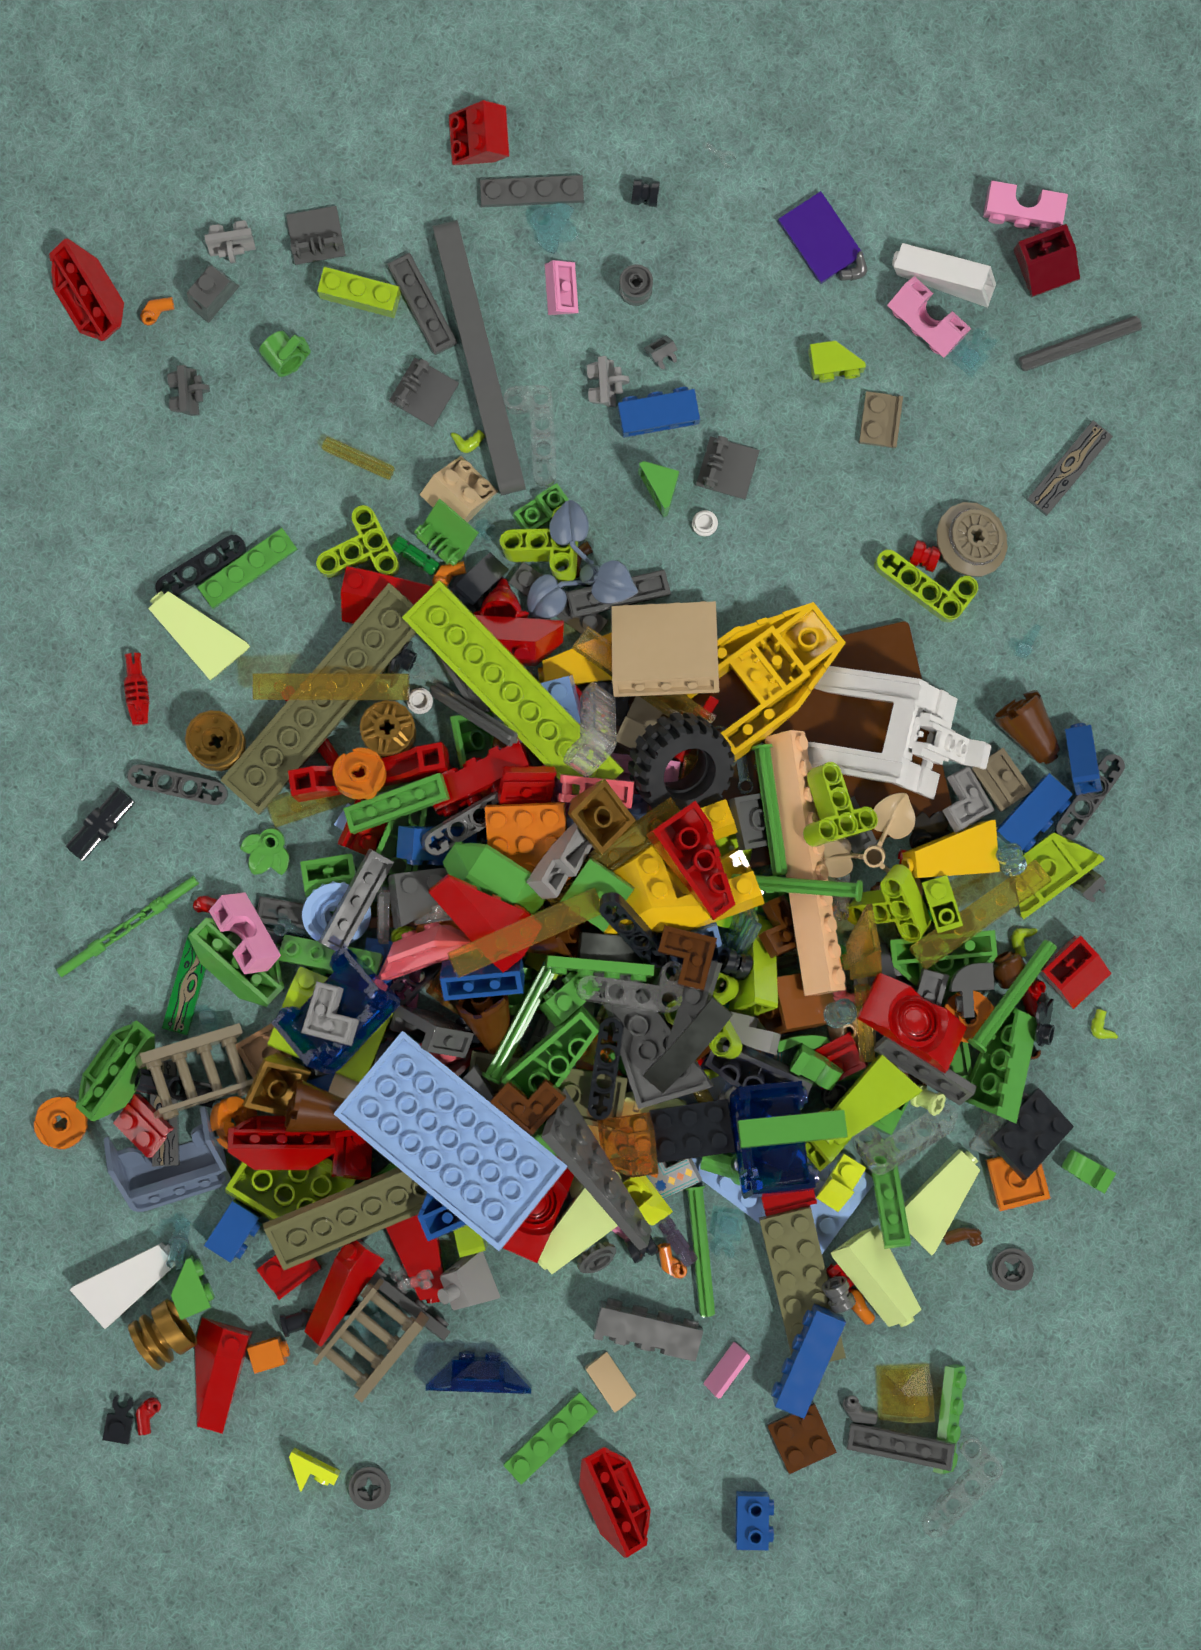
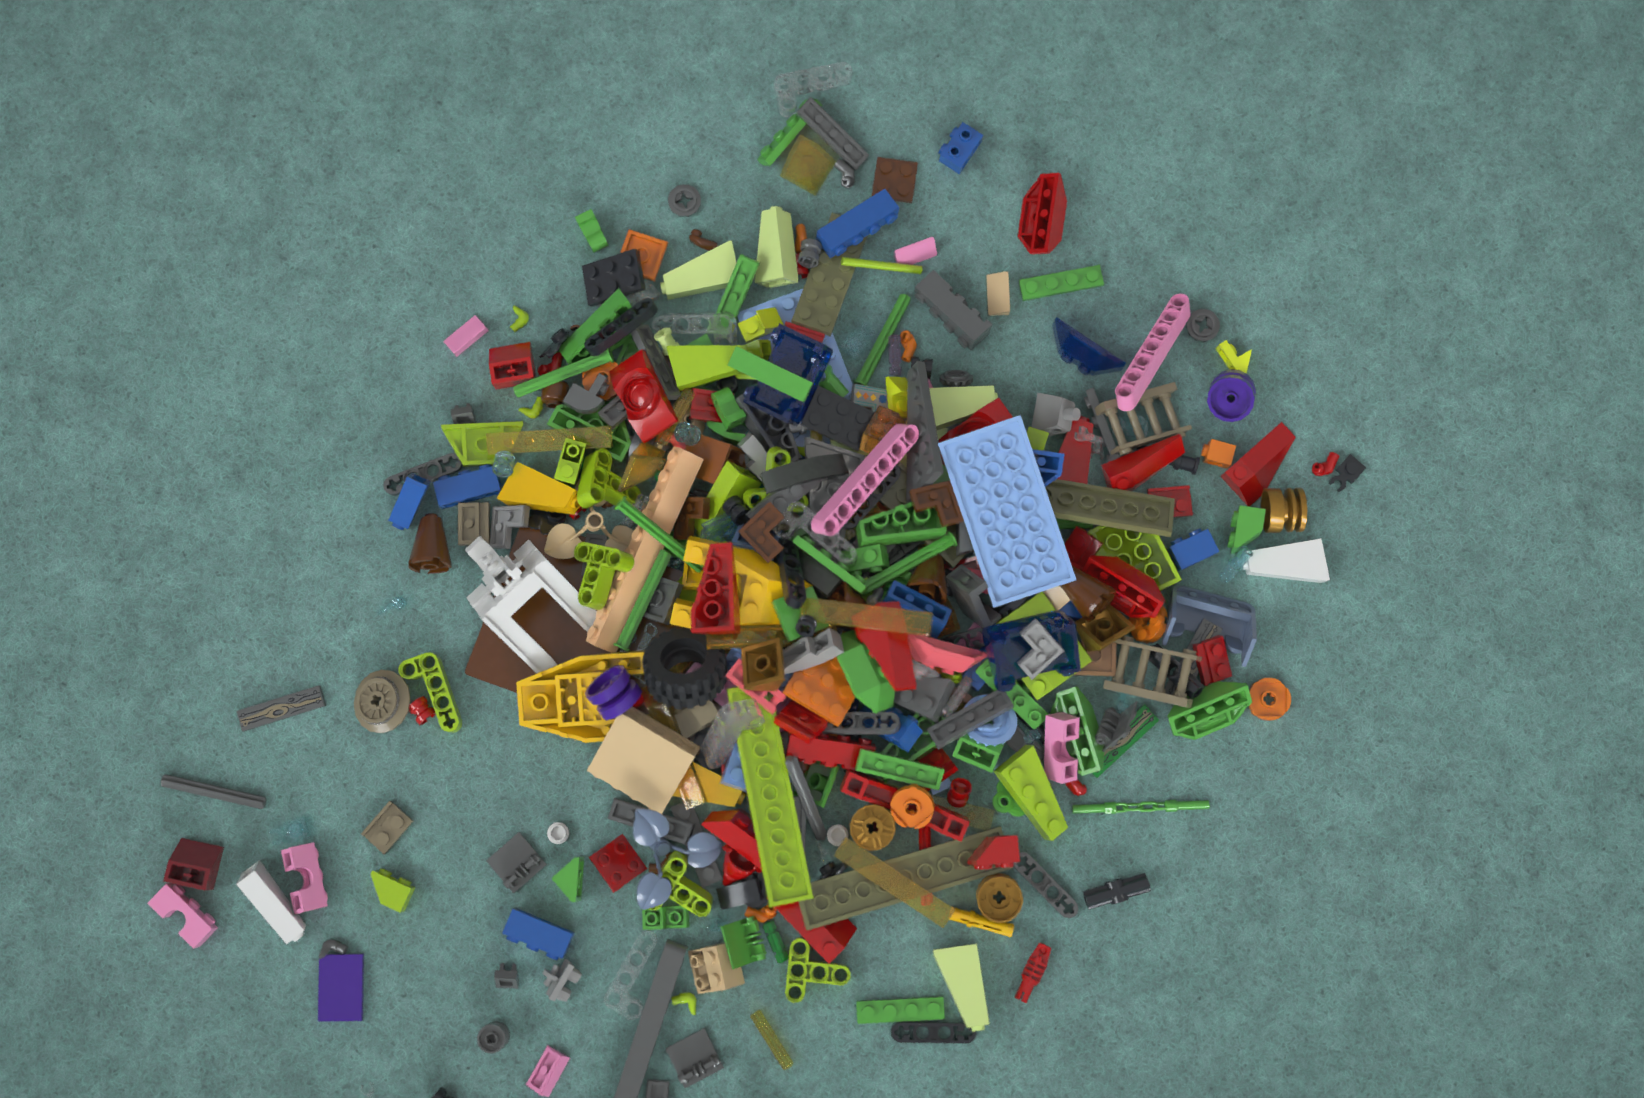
camera: 145 degrees left, 5 degrees down
(202, 990) = (1115, 726): none -> dark grey hinge
(231, 702) = (980, 921): none -> yellow pin
(247, 783) = (996, 850): none -> red slope
(252, 872) = (1031, 790): none -> lime wedge
(291, 1425) = (1231, 383): none -> dark purple wheel
(322, 821) = (959, 792): none -> red wheel
(403, 1419) = (1152, 352): none -> bright pink beam
(531, 962) = (875, 597): none -> dark grey arm
(582, 884) = (806, 631): none -> black bush
(619, 1078) = (874, 469): none -> bright pink beam
(624, 531) = (618, 863): none -> red hinge
(737, 692) = (613, 692): none -> dark purple wheel
(754, 1331) = (846, 261): none -> lime bar
(982, 1081) = (638, 313): none -> black beam
(1145, 972) = (466, 335): none -> bright pink slope

